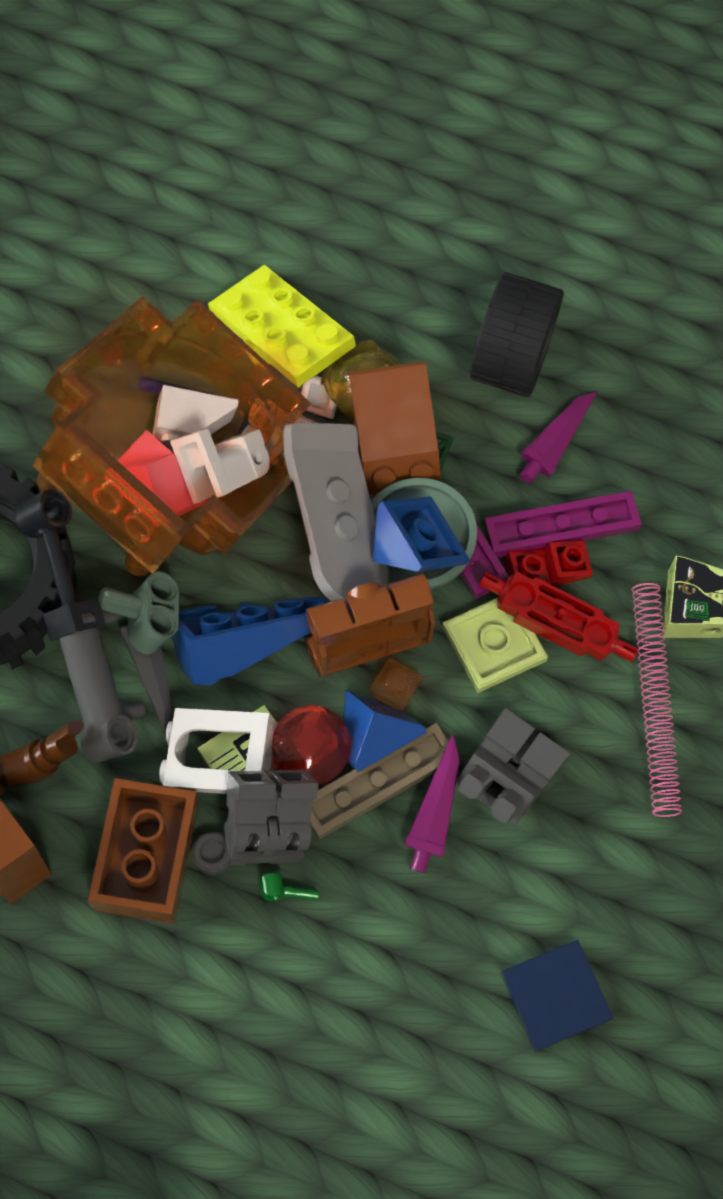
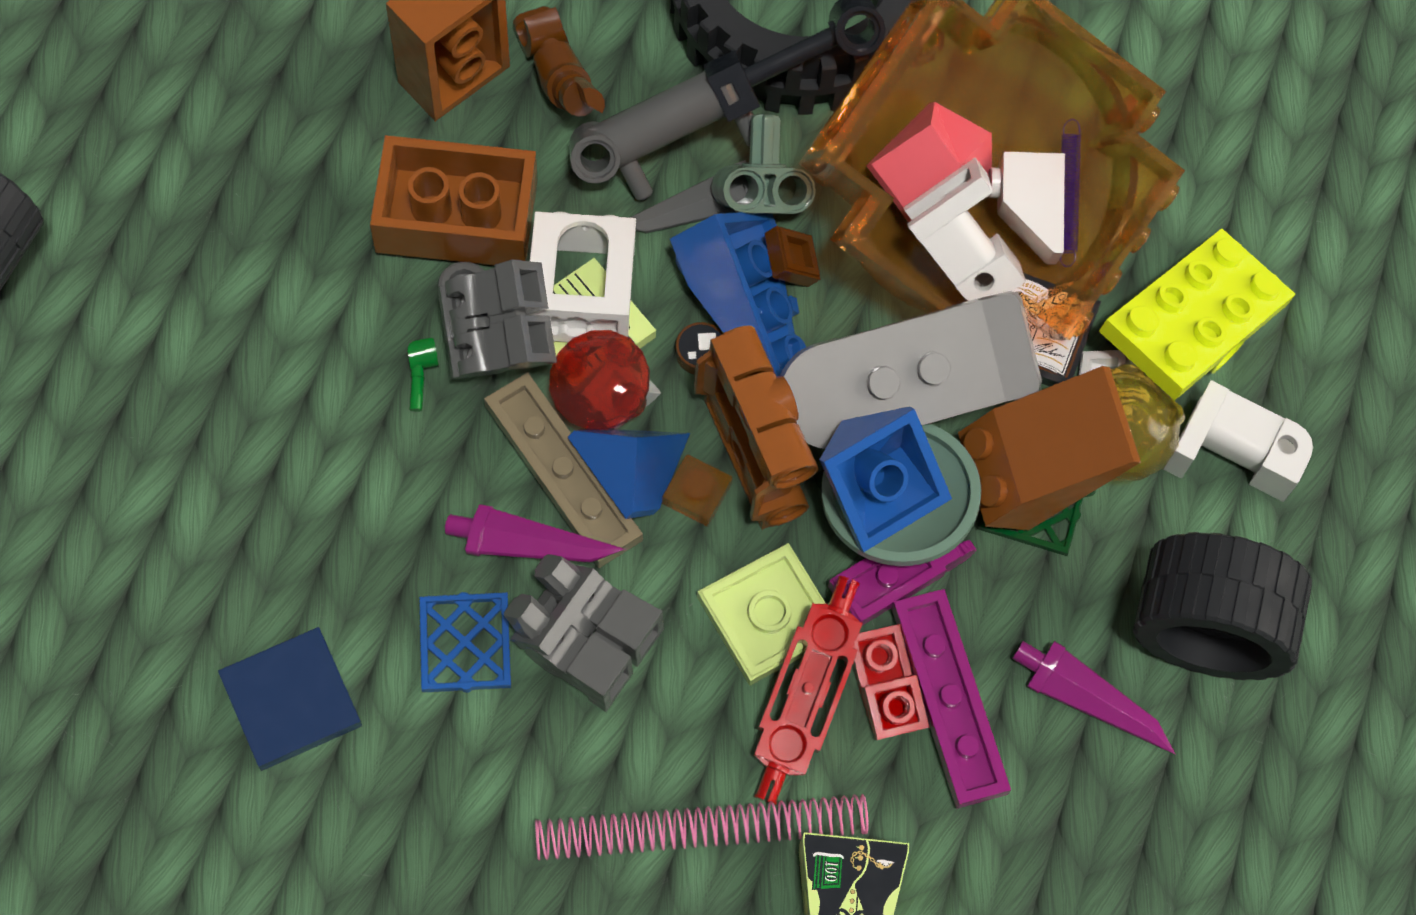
camera: 85 degrees right, 0 degrees up
(208, 599) = (792, 256): none -> reddish brown tile
(279, 674) = (694, 343): none -> tile
(379, 305) = (1247, 437): none -> white piece
(479, 862) = (466, 682): none -> blue window

